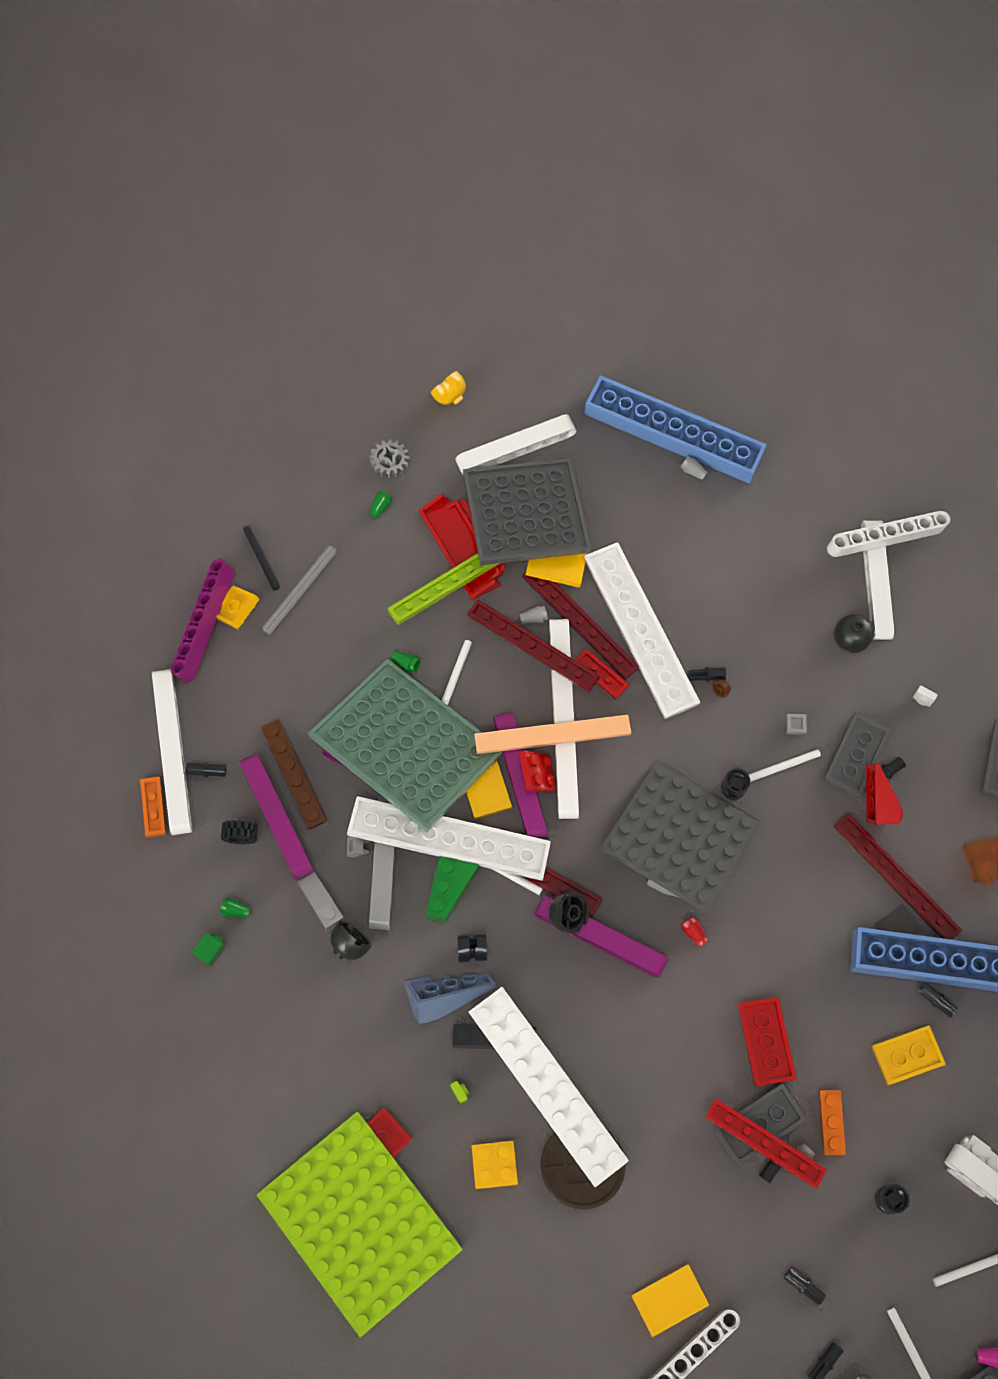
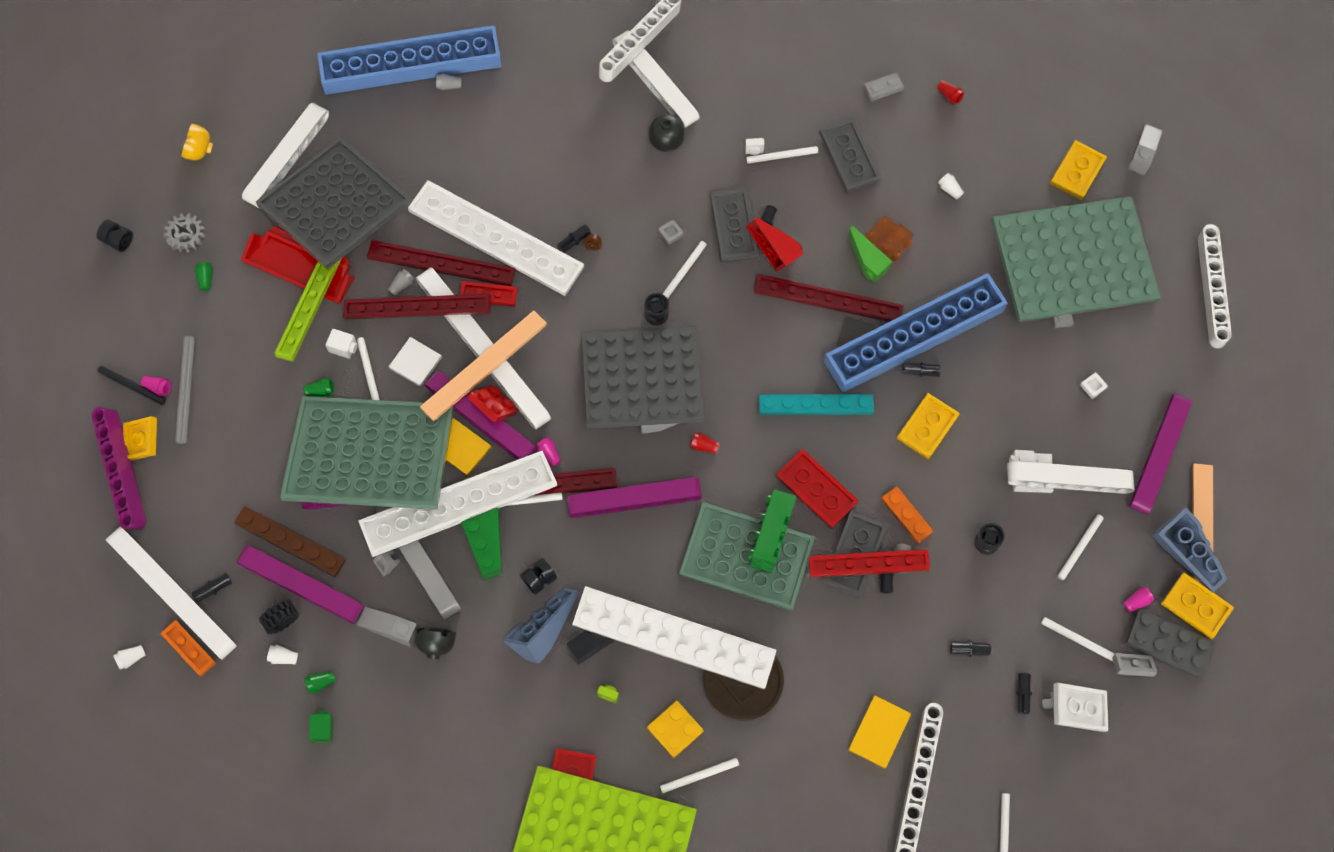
camera: 35 degrees left, 0 degrees up
(103, 781) = (127, 657): none -> white cone
(219, 864) = (281, 655): none -> white cone
(281, 572) = (158, 385): none -> dark pink cone
(333, 425) = (114, 235): none -> black wheel
(449, 635) = (341, 343): none -> white brick
(485, 1220) = (699, 775): none -> white bar
(499, 691) = (415, 362): none -> white tile
(557, 845) = (549, 450): none -> dark pink cone
(561, 569) = (396, 231): yellow tile -> none
(569, 912) = (596, 493): pearl dark grey cylinder -> none
(662, 1058) = (721, 553): none -> sand green plate
(699, 1052) = (772, 532): none -> green wedge
(819, 965) = (816, 404): none -> teal plate
(944, 719) = (783, 154): none -> white bar
(960, 867) = (871, 260): none -> bright green slope

